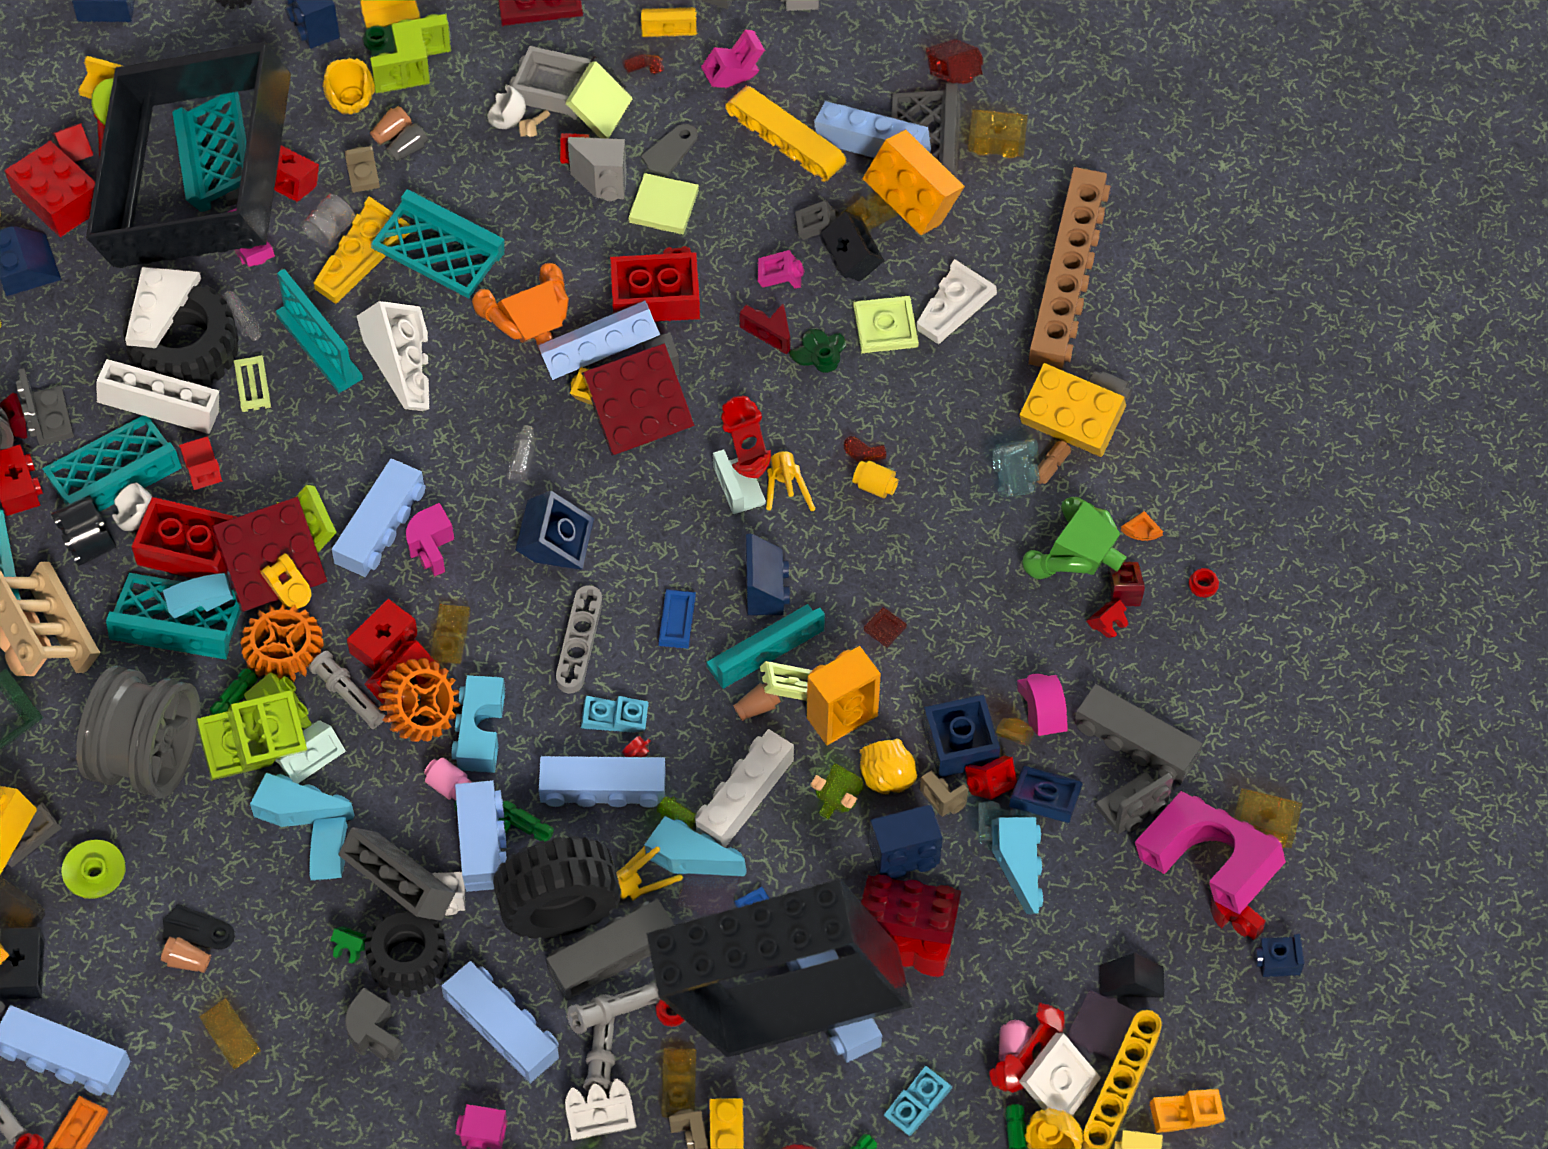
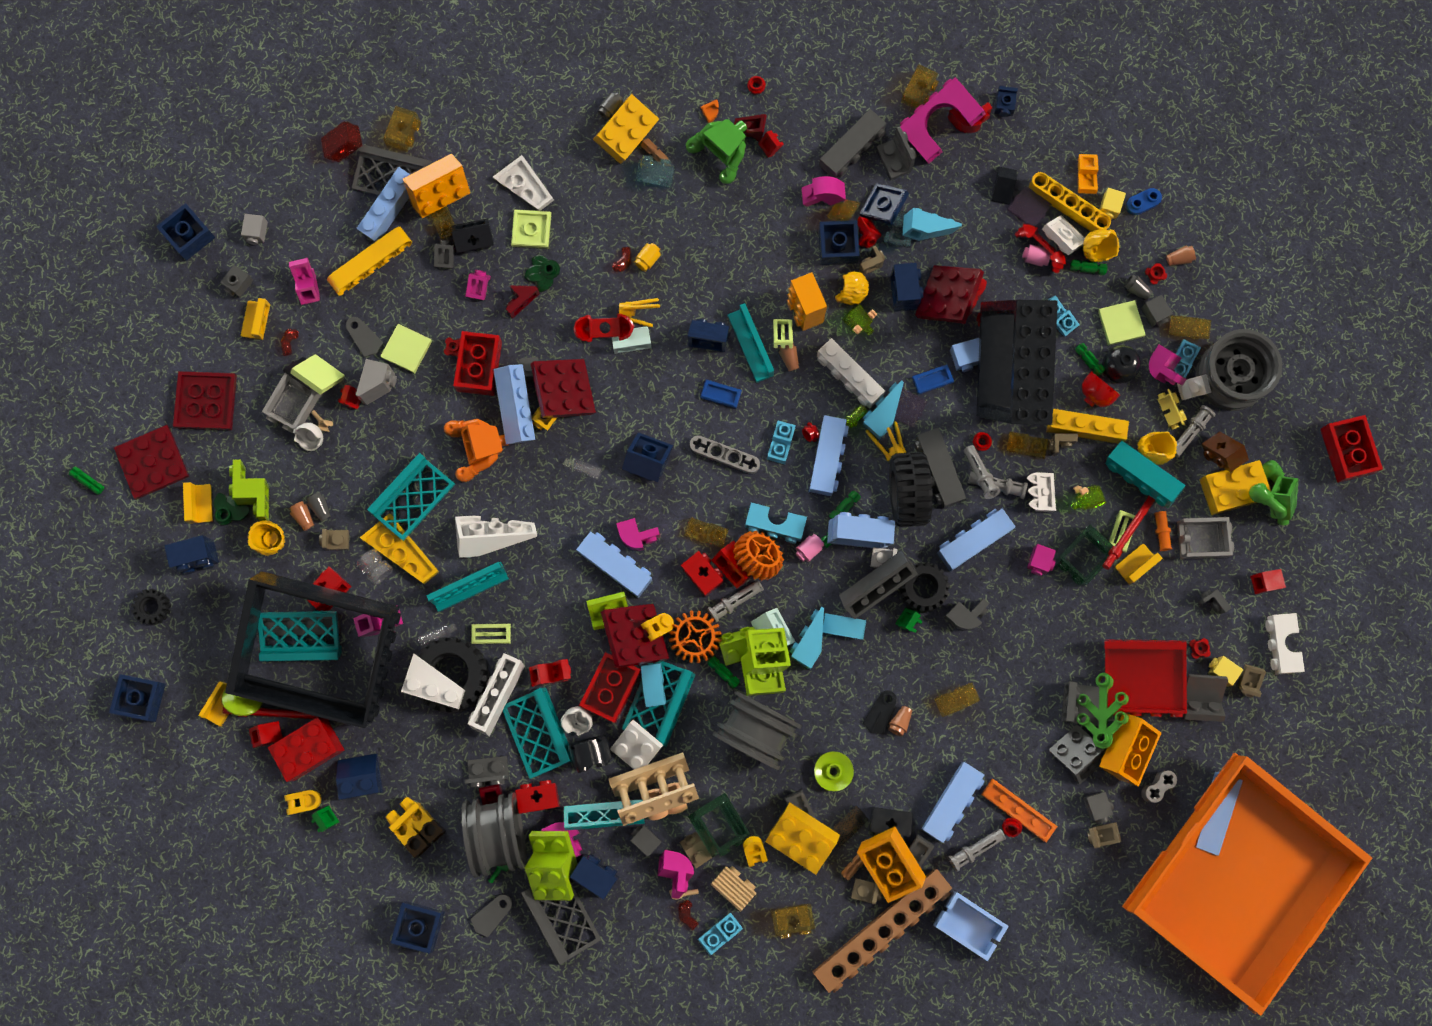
camera: 80 degrees left, 20 degrees up
(103, 589) = (636, 746): none -> white plate
(885, 627) = (750, 273): clear red tile -> none
(1071, 251) = (504, 110): medium nougat brick -> none

